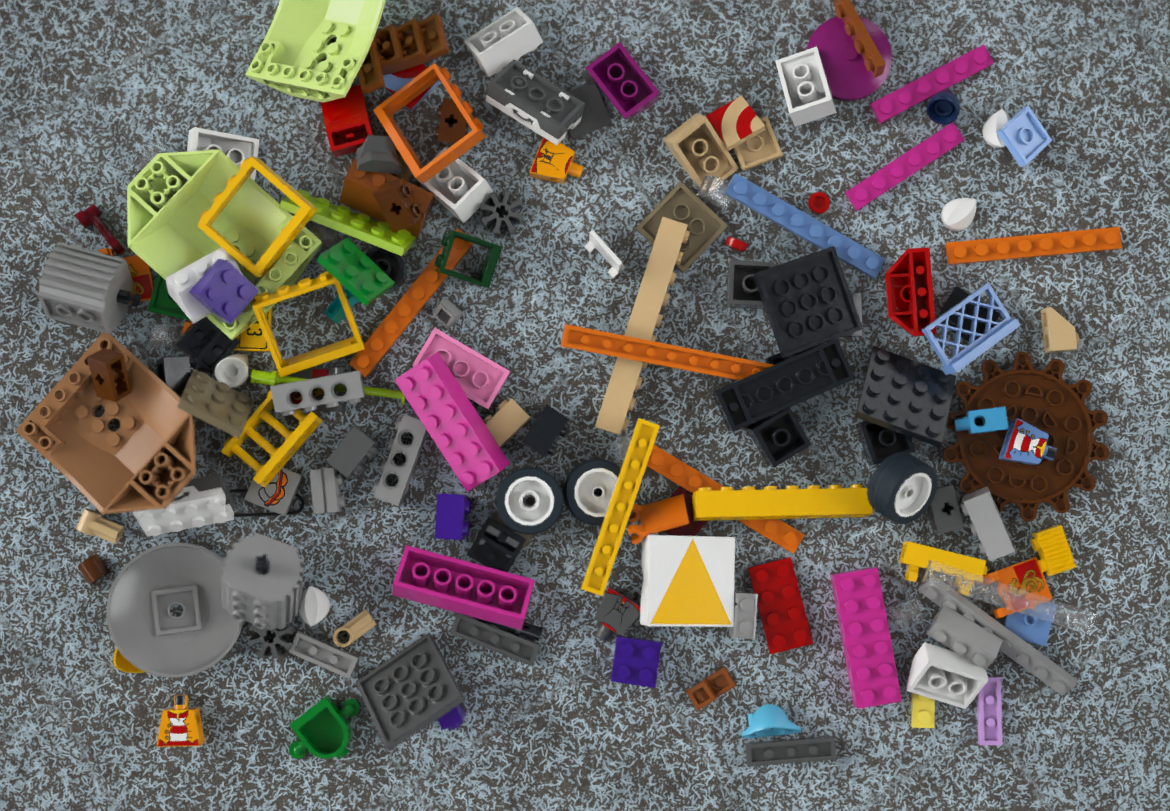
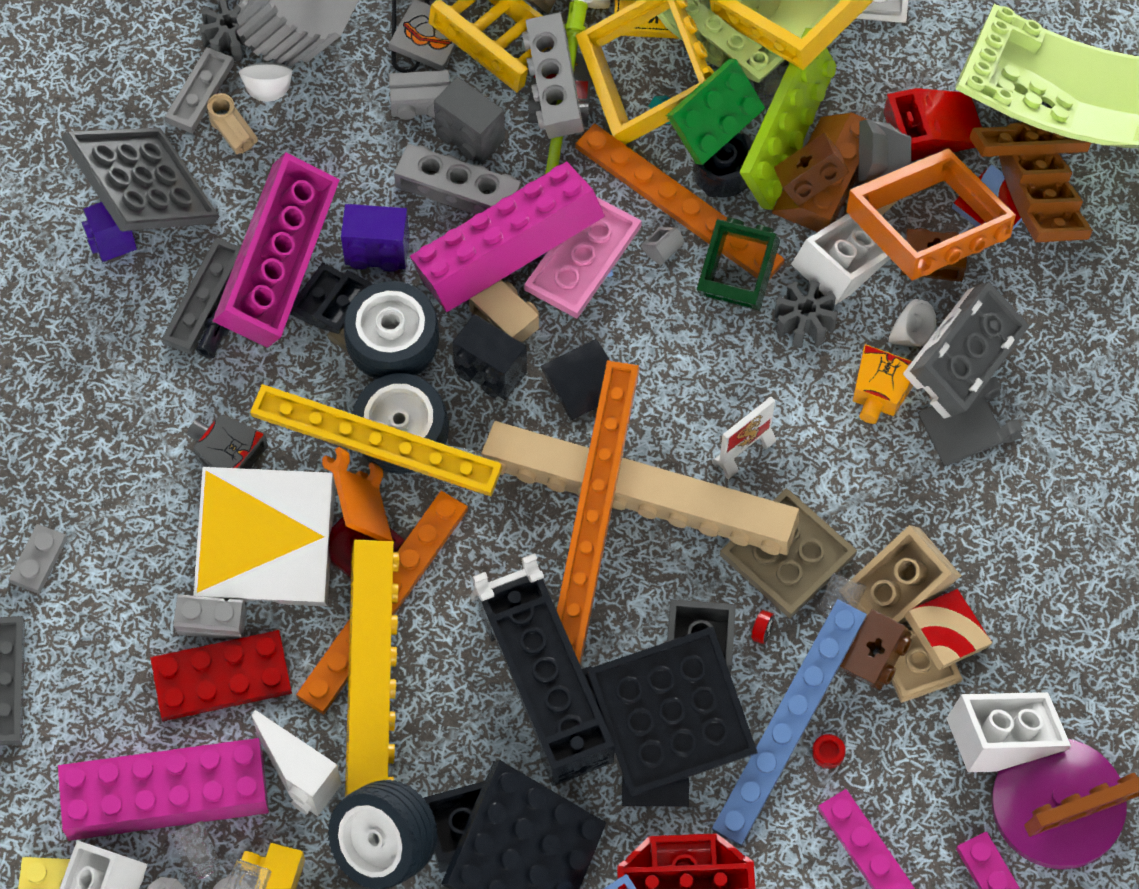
camera: 90 degrees right, 20 degrees down
(324, 729) = (100, 88): green piece -> none
(503, 41) = (1057, 320): white slope -> none
(508, 139) = (914, 324): none -> white piece
(554, 367) = (578, 378): none -> black slope
(623, 82) = (1002, 471): magenta slope -> none
(635, 661) = (156, 471): dark purple brick -> none
(699, 738) = (38, 558): none -> light grey plate
(711, 688) = (109, 576): dark orange slope -> none
(717, 416) = (483, 587): none -> white flag
(745, 159) = (874, 634): none -> reddish brown brick
(769, 721) = (51, 648): medium azure hat -> none
(778, 437) = (470, 670): black brick -> none
(853, 546) = (305, 772): none -> white slope

